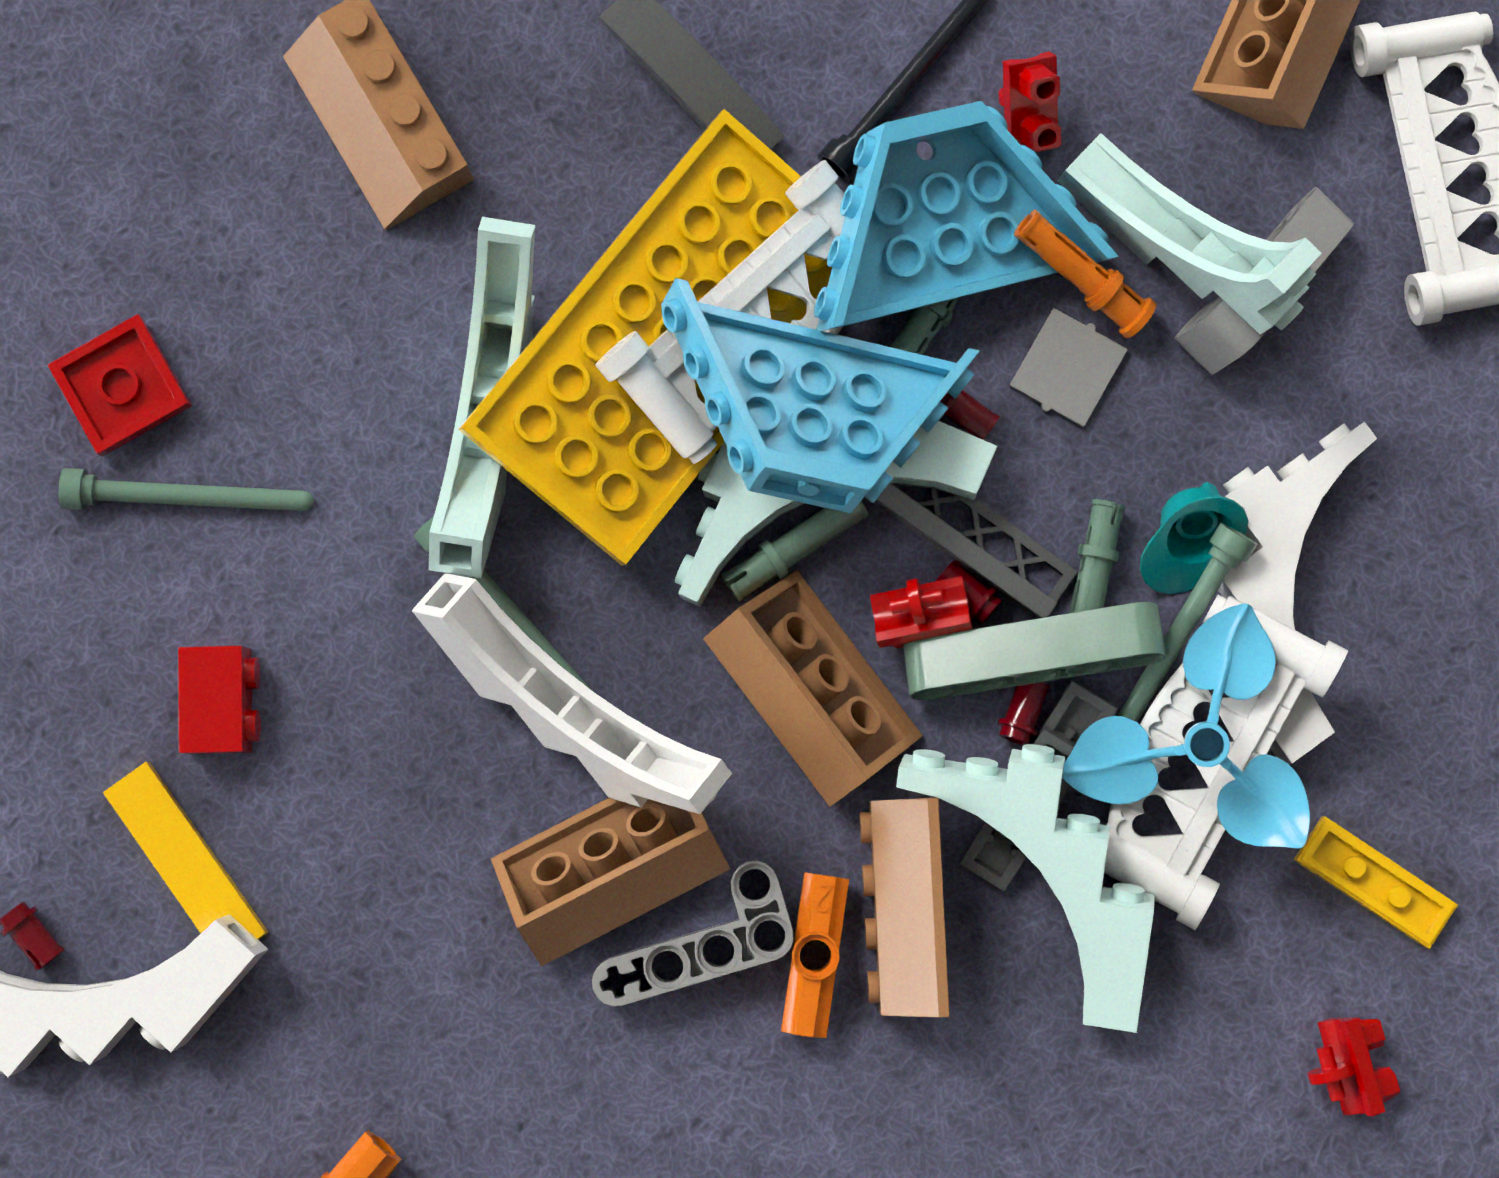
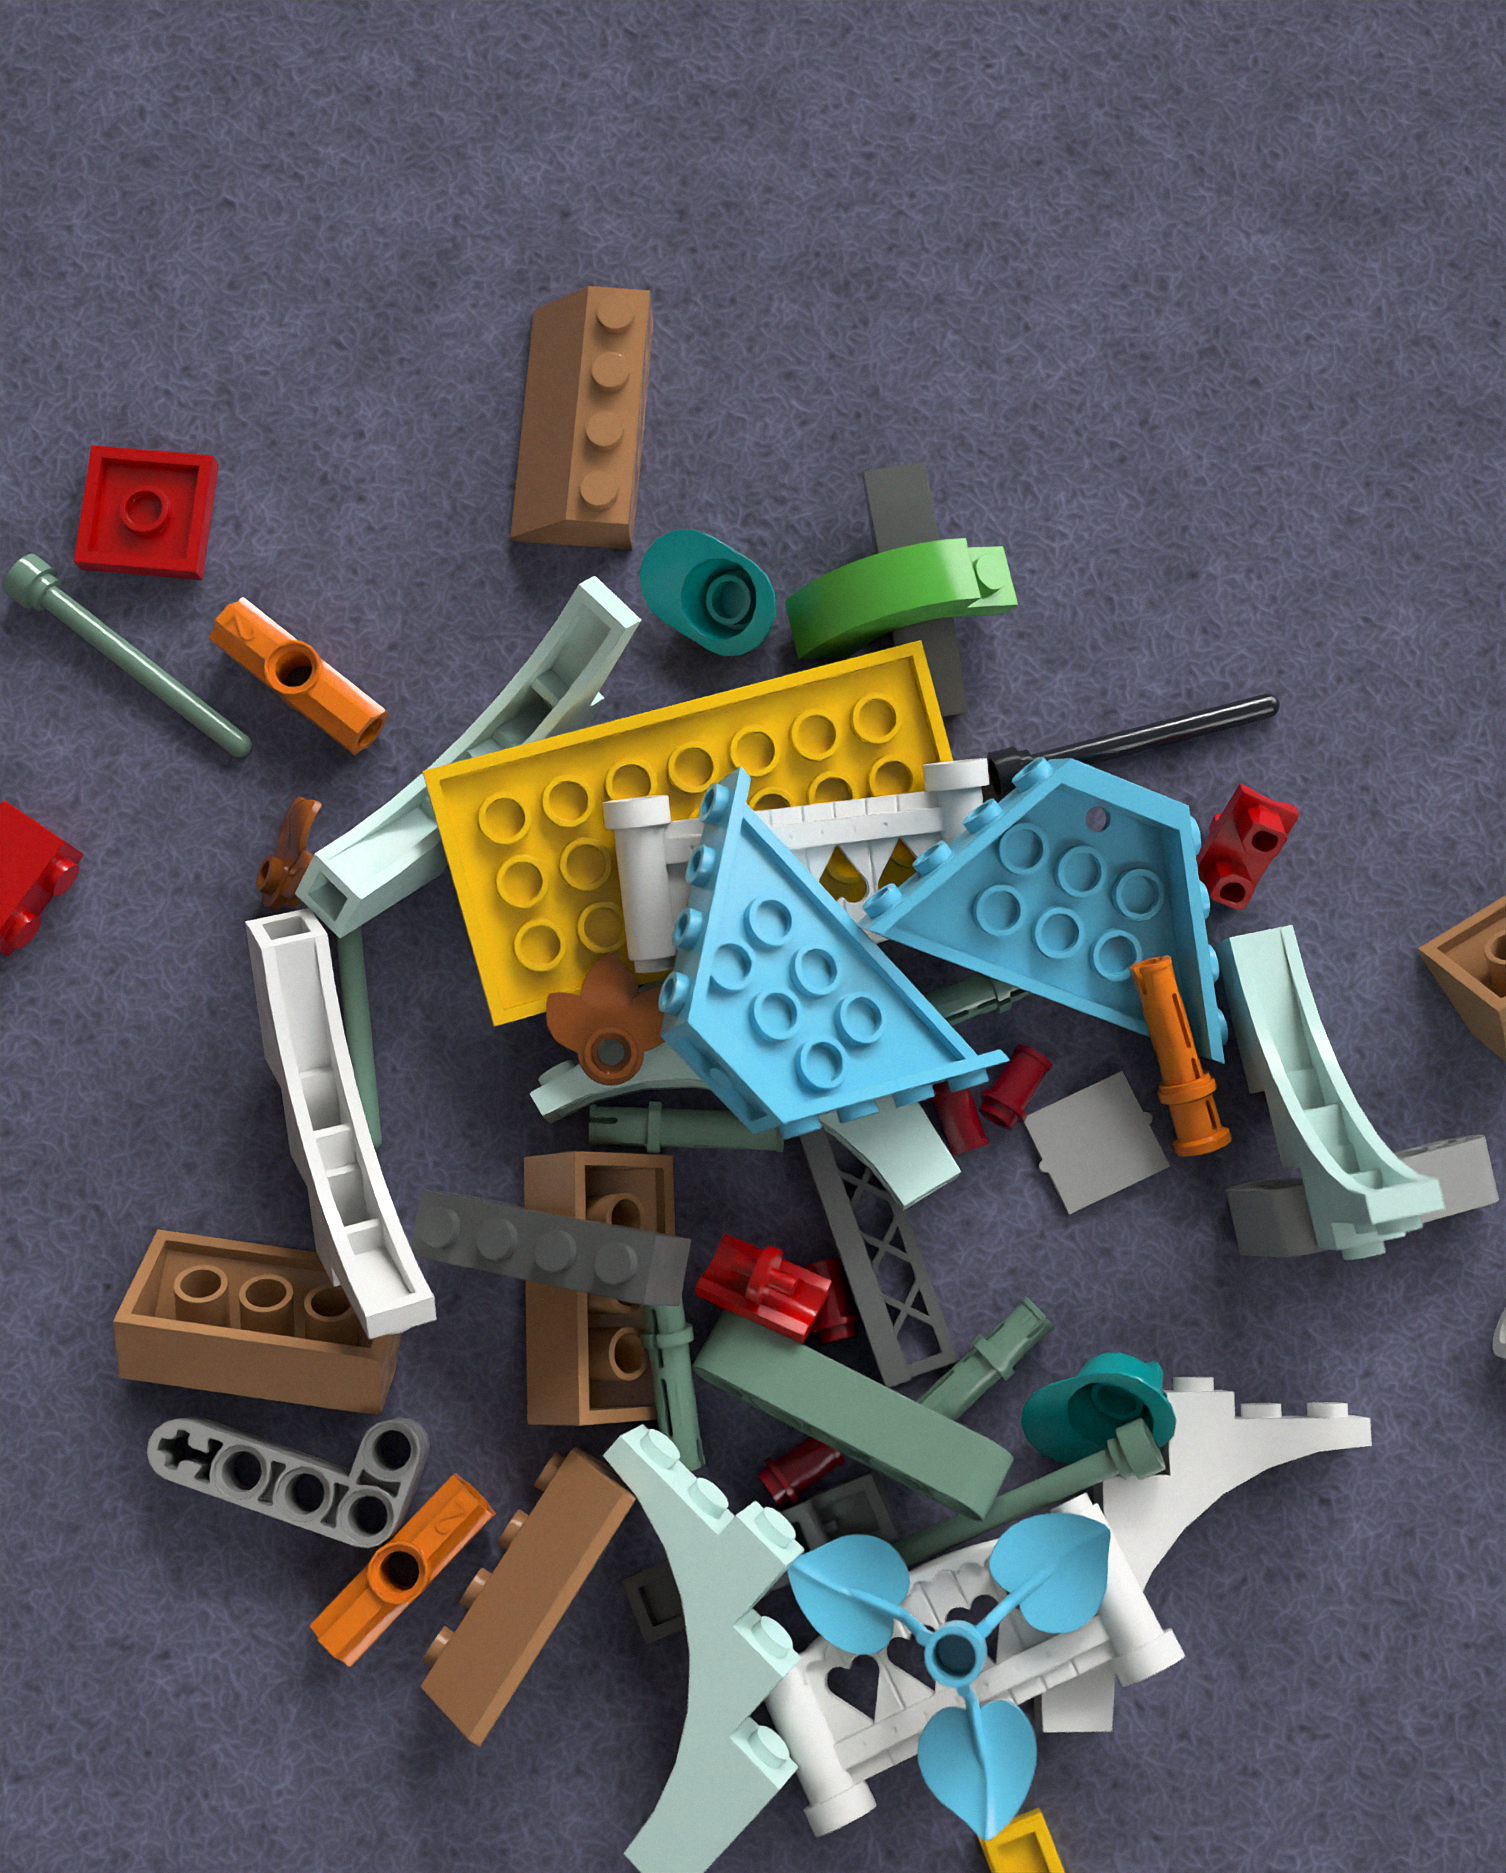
camera: 35 degrees right, 5 degrees down
(280, 422) = (273, 653): none -> orange piece
(405, 557) = (283, 872): none -> dark orange plate
(553, 174) = (708, 592): none -> teal piece
(683, 87) = (897, 589): none -> bright green arch
(695, 500) = (604, 1011): none -> dark orange plate
(766, 681) = (551, 1248): none -> dark grey arch
(892, 700) = (667, 1342): none -> sand green pin
(991, 368) = (1014, 1087): none -> dark red pin

